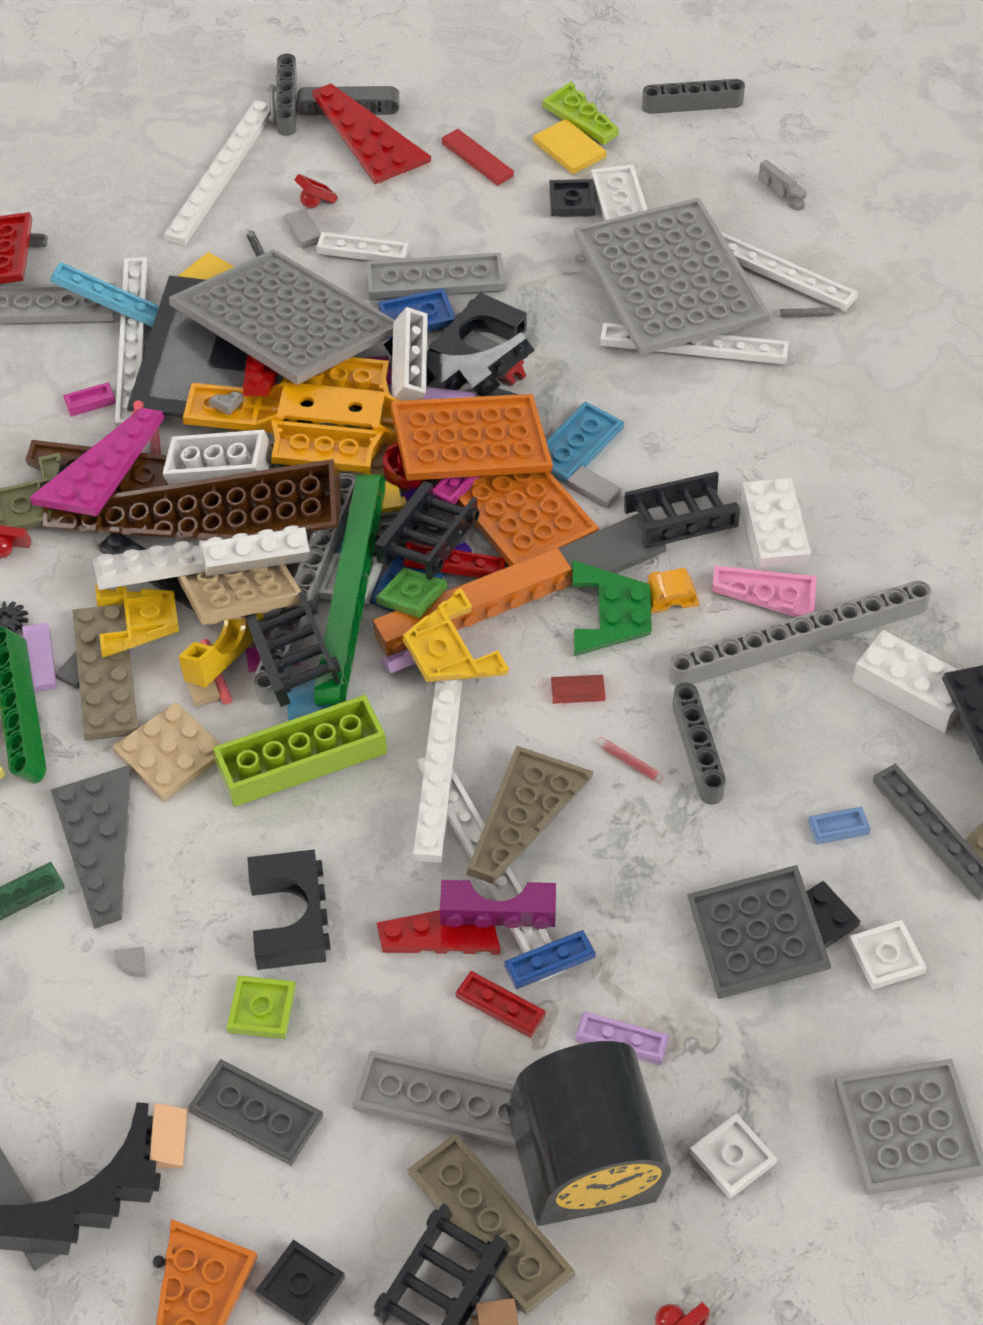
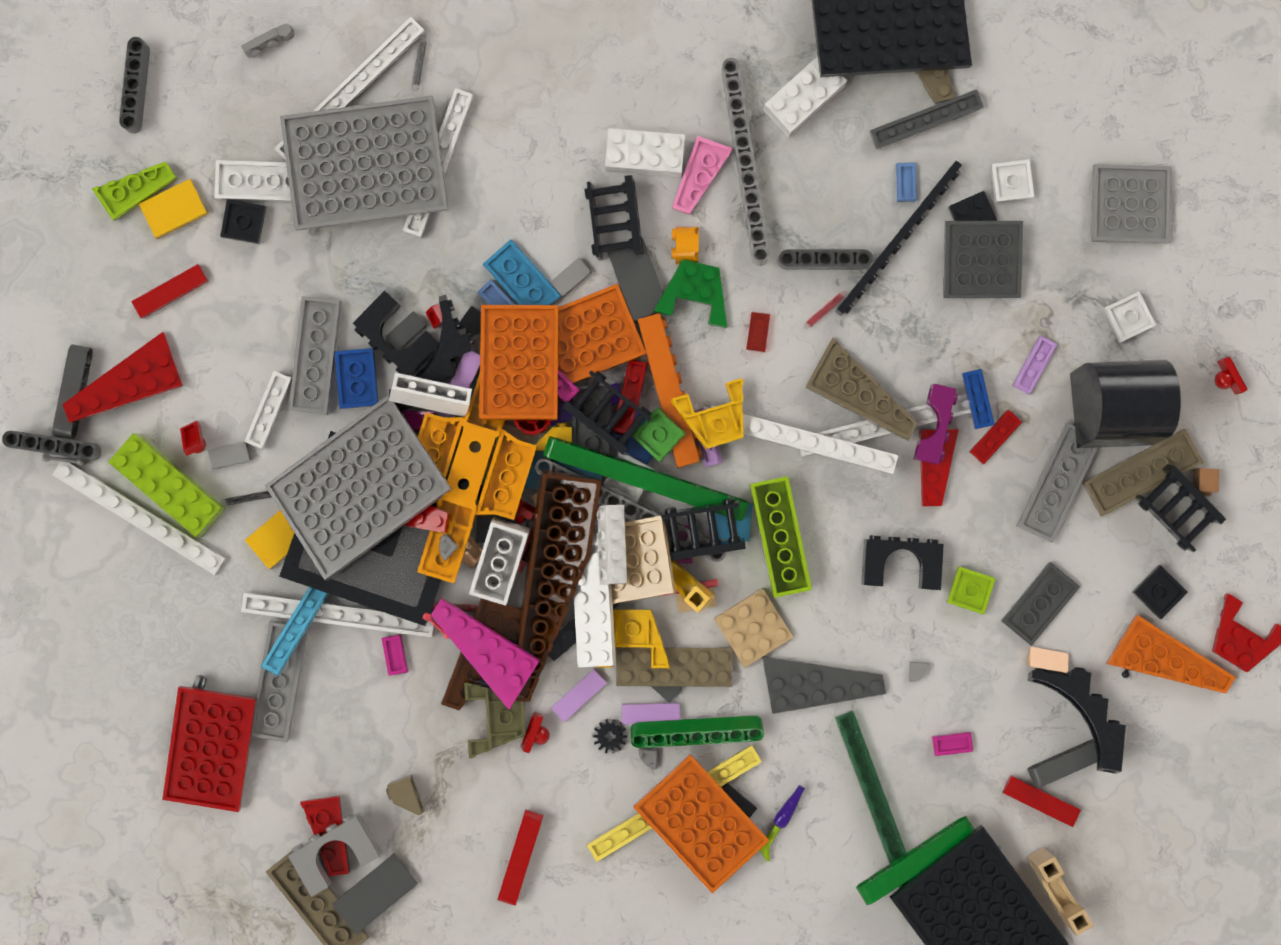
camera: 80 degrees left, 35 degrees up
(25, 1027) = (952, 743): none -> dark pink tile
(56, 579) = (579, 695): none -> lavender tile
(258, 182) = (167, 485): none -> lime brick
(552, 418) = (494, 295): none -> medium blue tile
(758, 824) = (905, 232): none -> black plate

